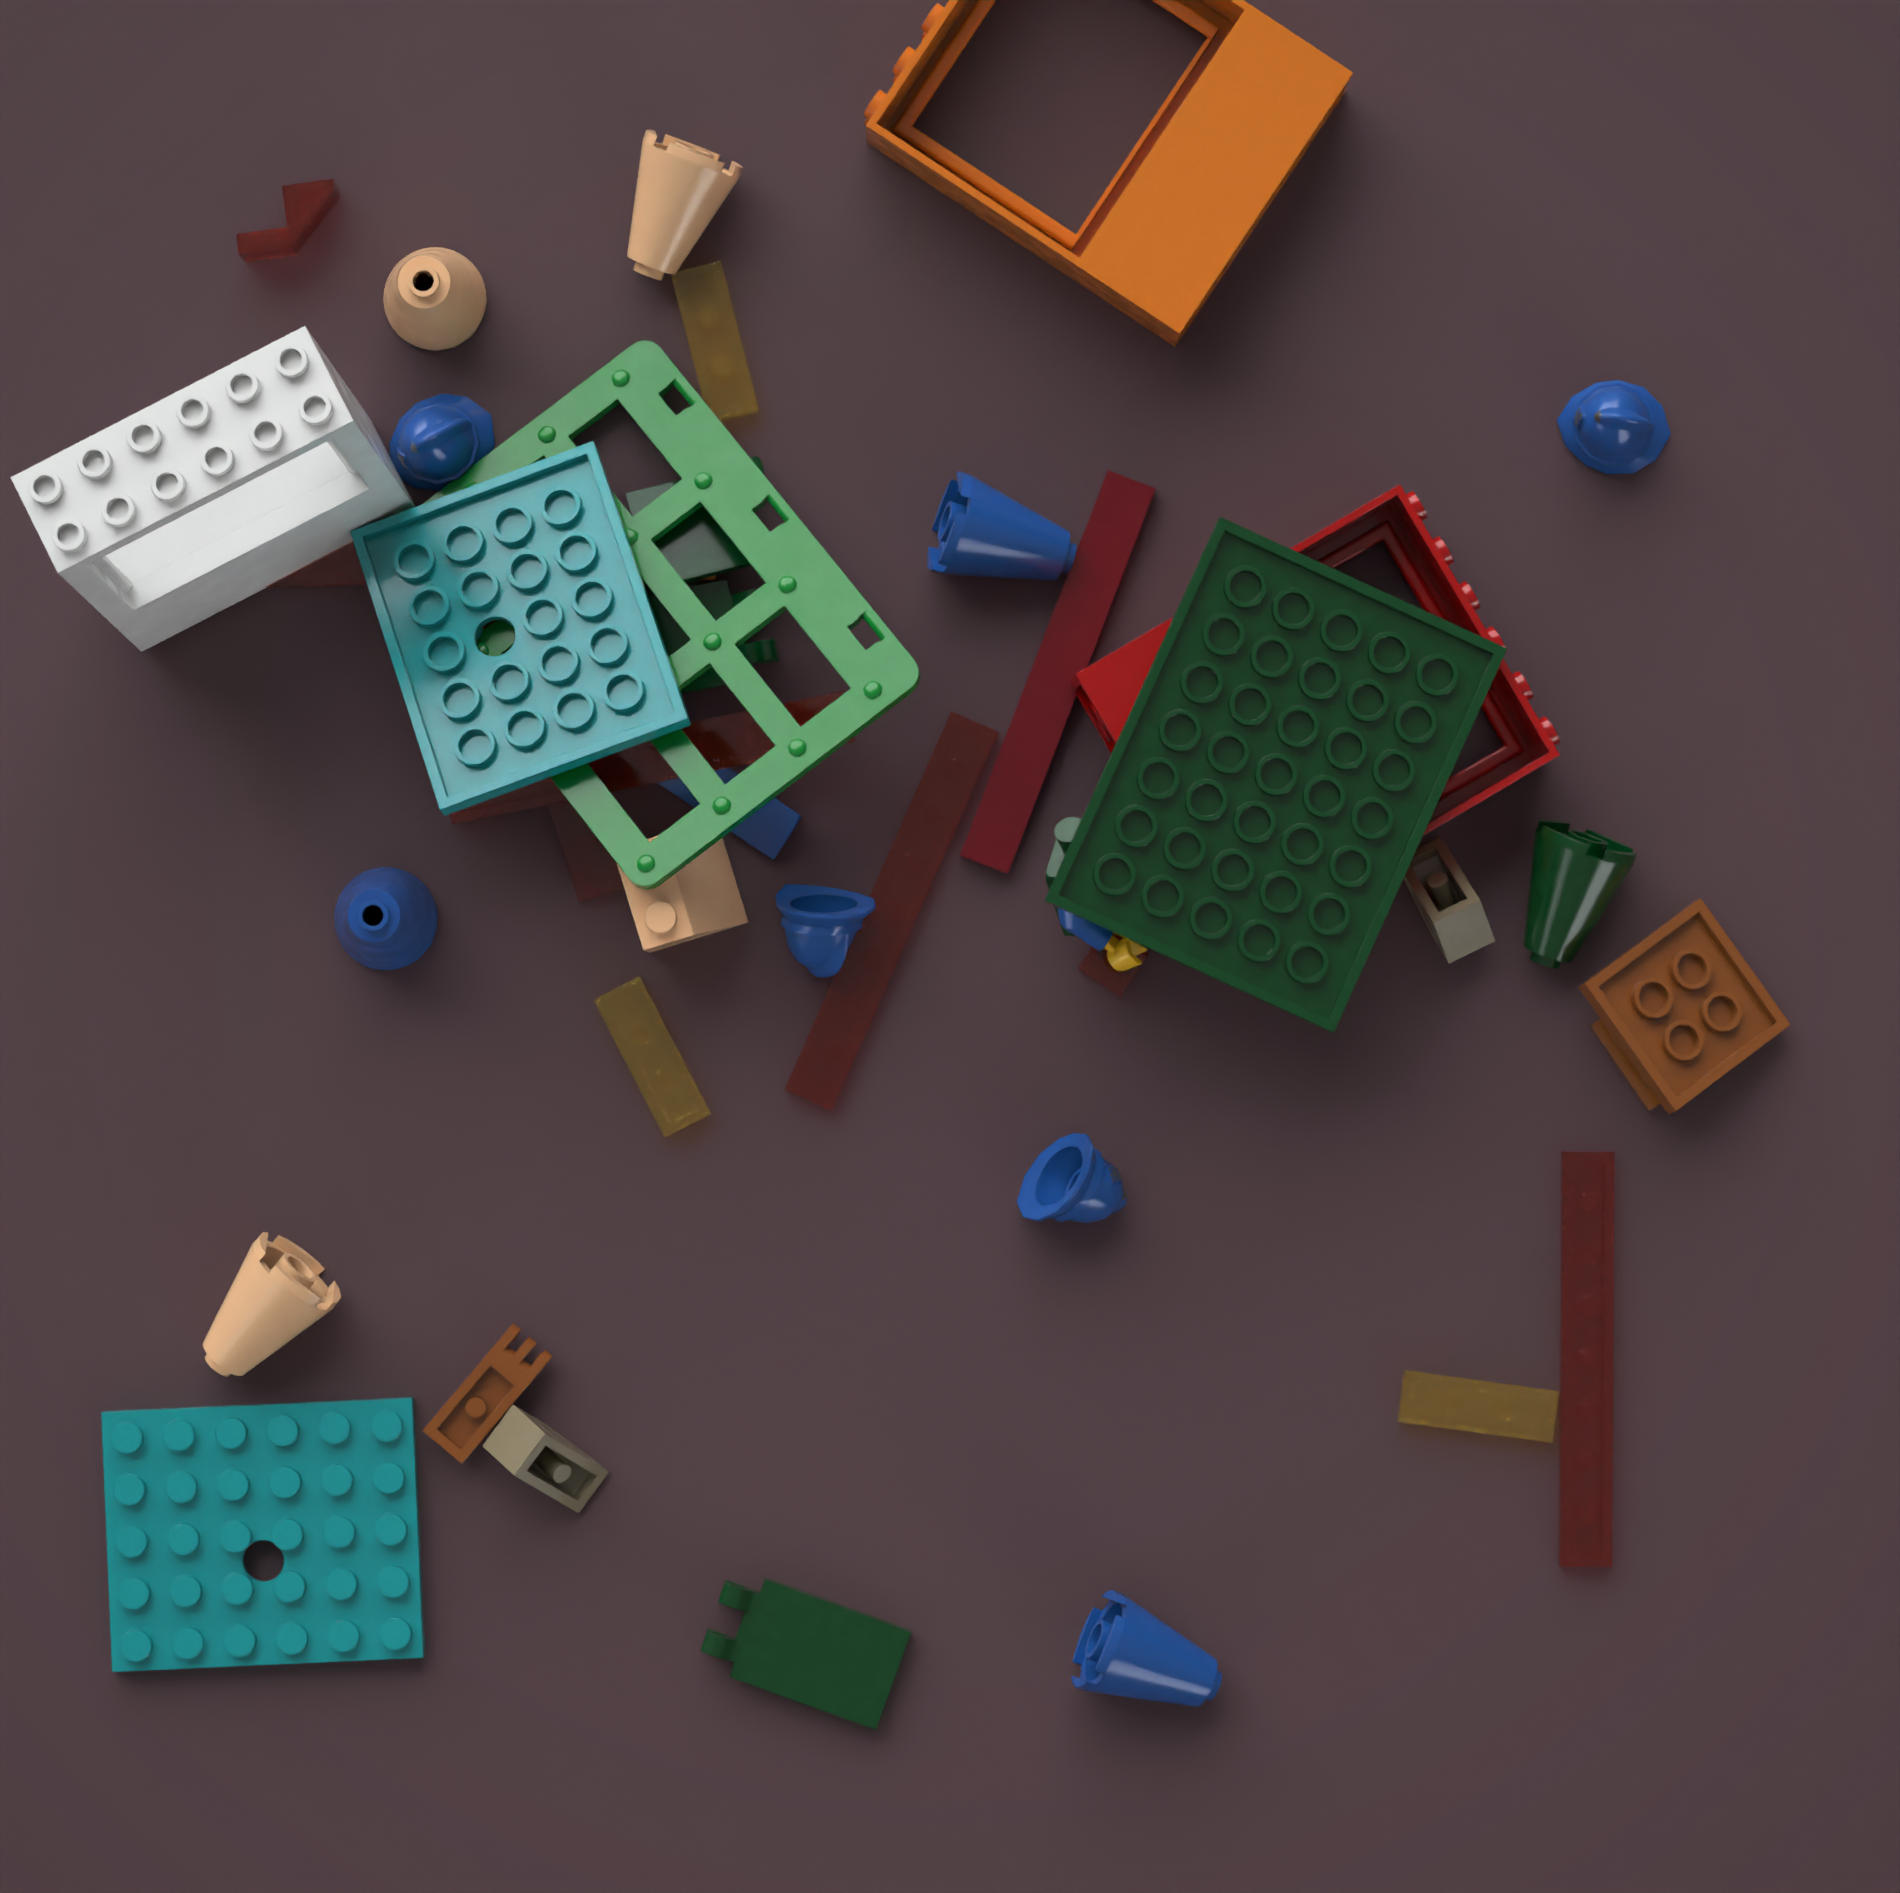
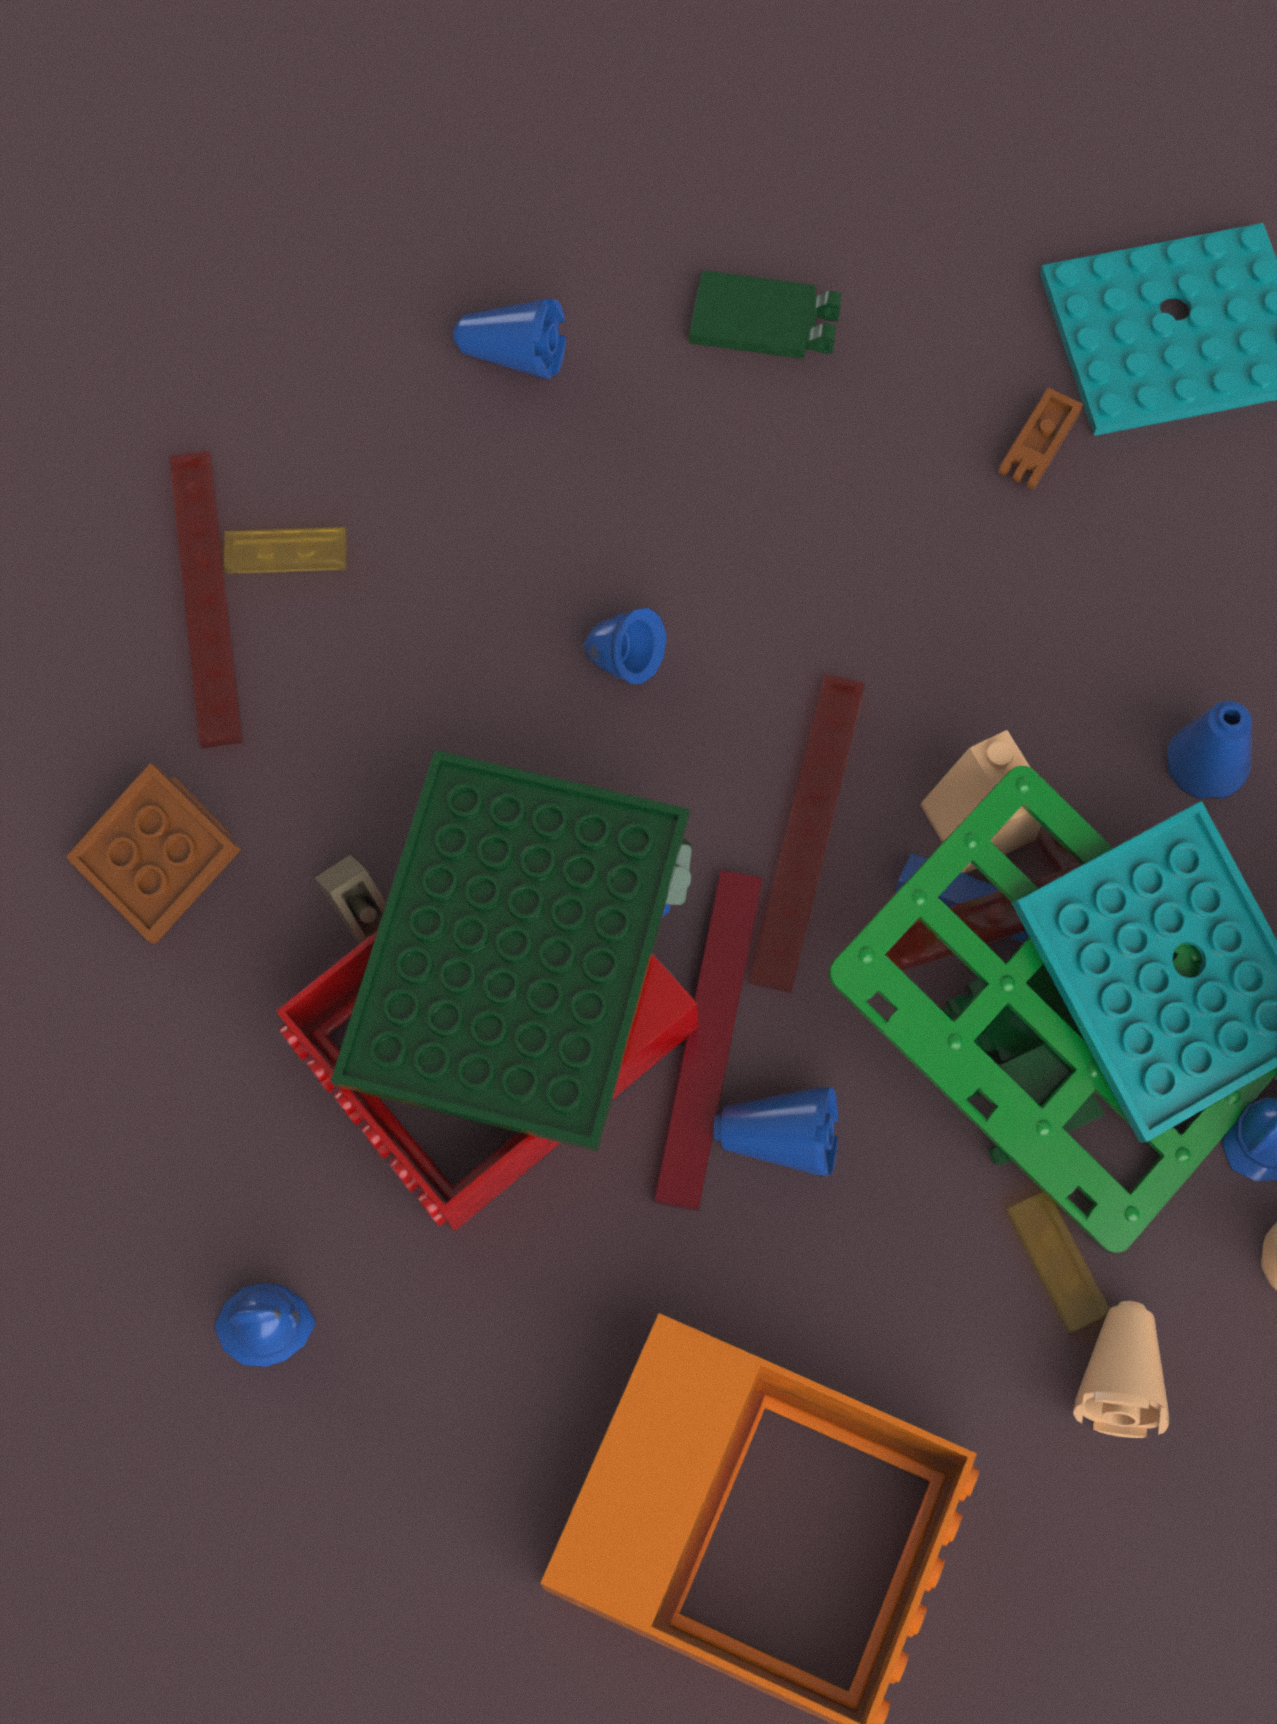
camera: 175 degrees right, 20 degrees down
(267, 1305) = (1220, 470): light nougat cone -> none
(545, 1459) = (988, 400): dark tan slope -> none
(652, 1056) = (972, 689): clear yellow tile -> none
(821, 924) = (864, 807): blue piece -> none
(1570, 888) = (255, 932): dark green cone -> none

